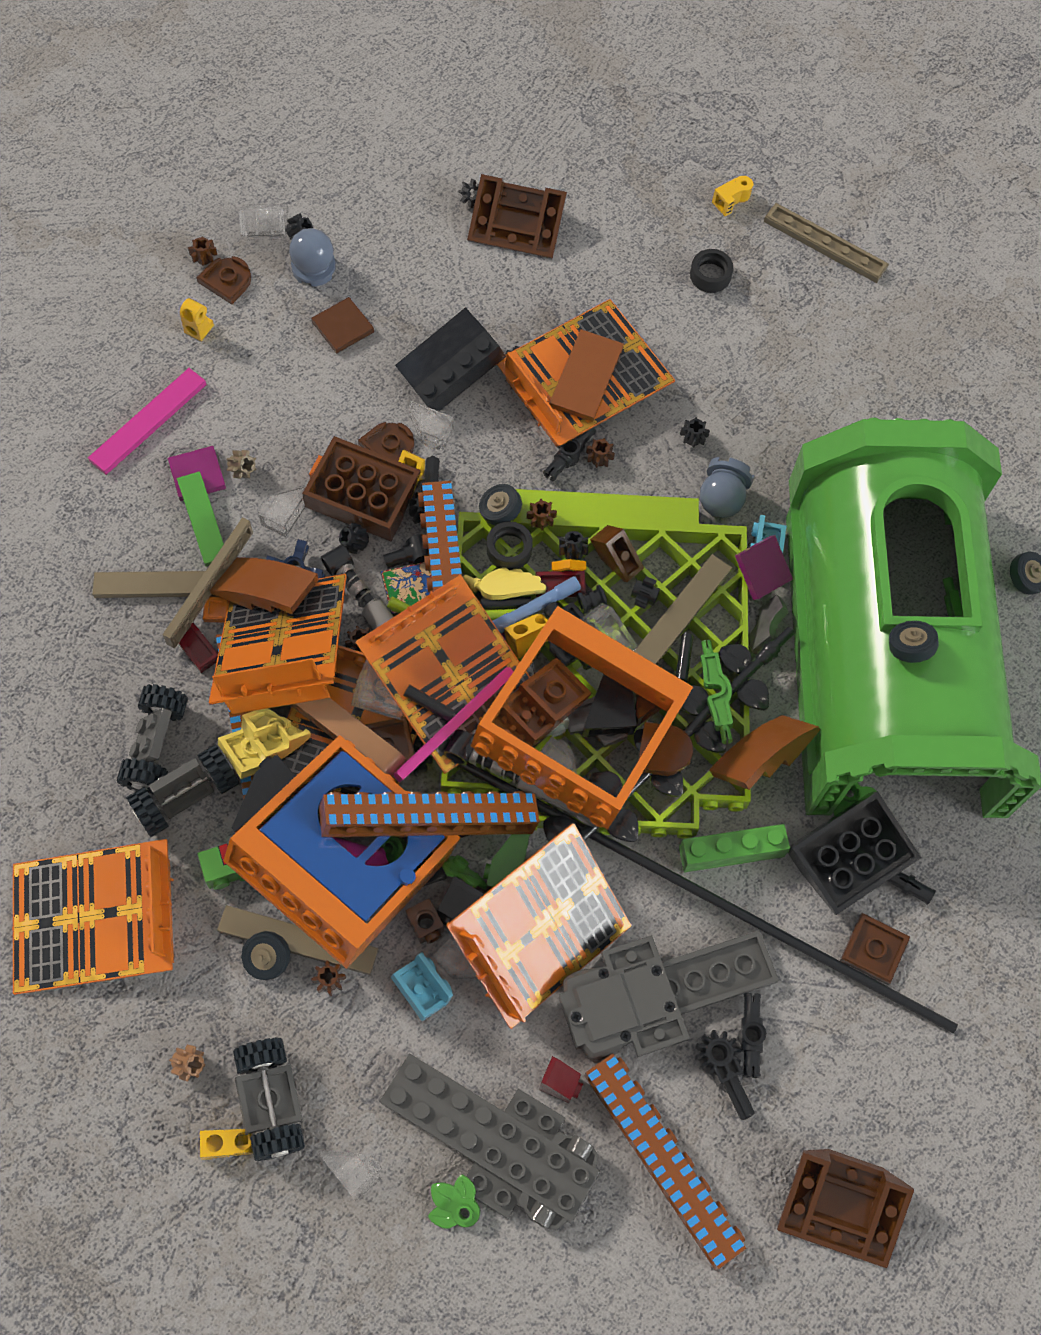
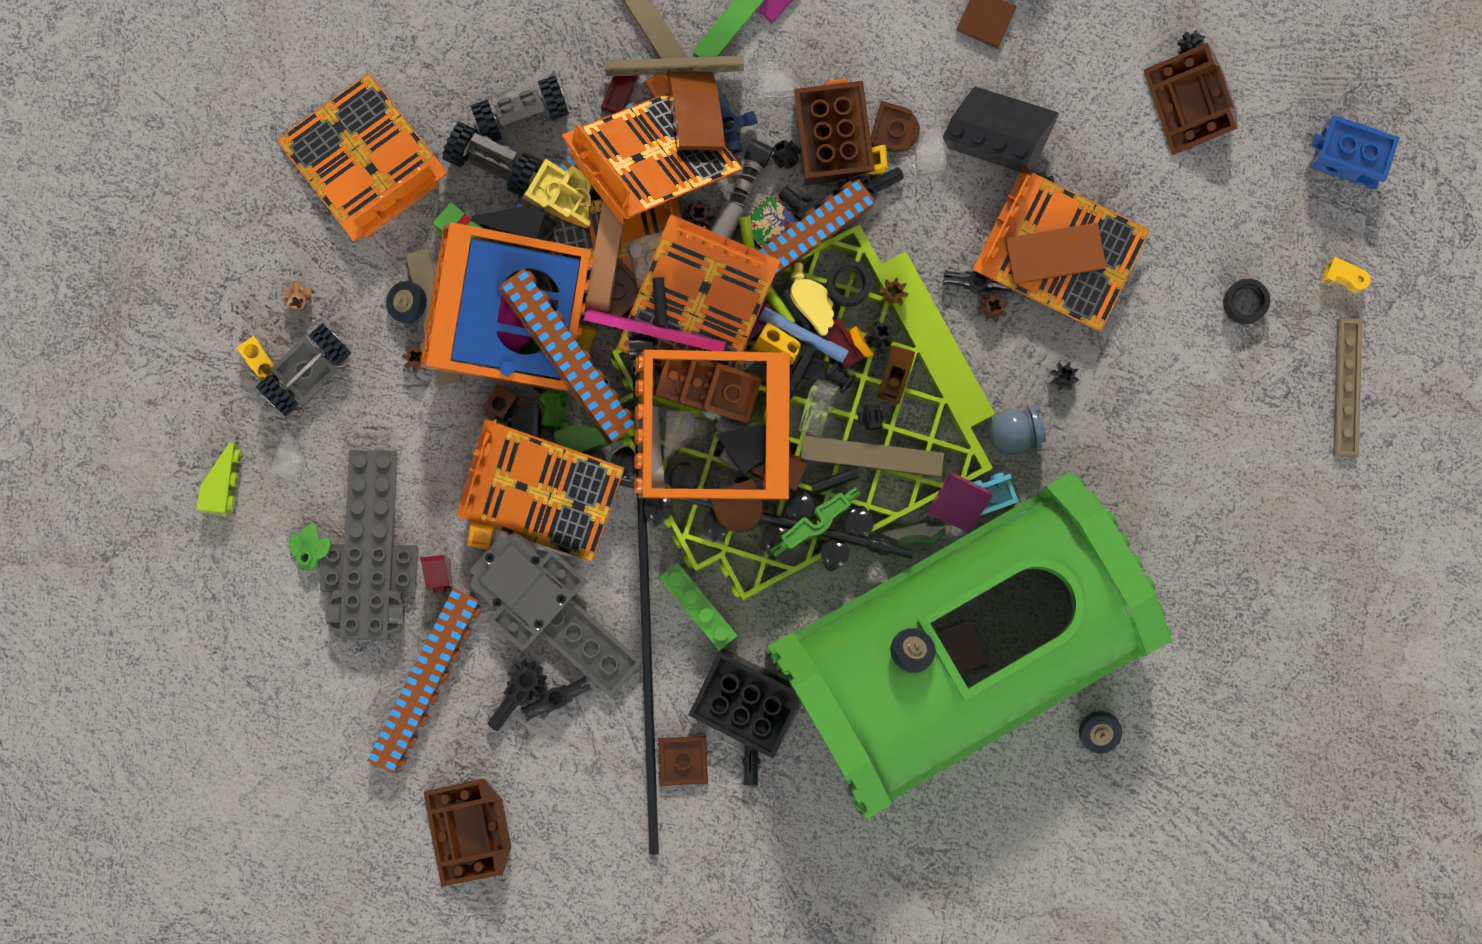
camera: 60 degrees right, 15 degrees up
(241, 464) = (797, 22): dark tan gear -> none
(334, 1269) = (217, 488): none -> lime slope
(423, 986) = (449, 431): medium azure bracket -> none
(500, 504) = (881, 254): black wheel -> none
(545, 1017) = (480, 536): none -> light orange tile
(637, 131) = (1354, 152): none -> blue torso
(764, 751) = (787, 586): dark orange slope -> none

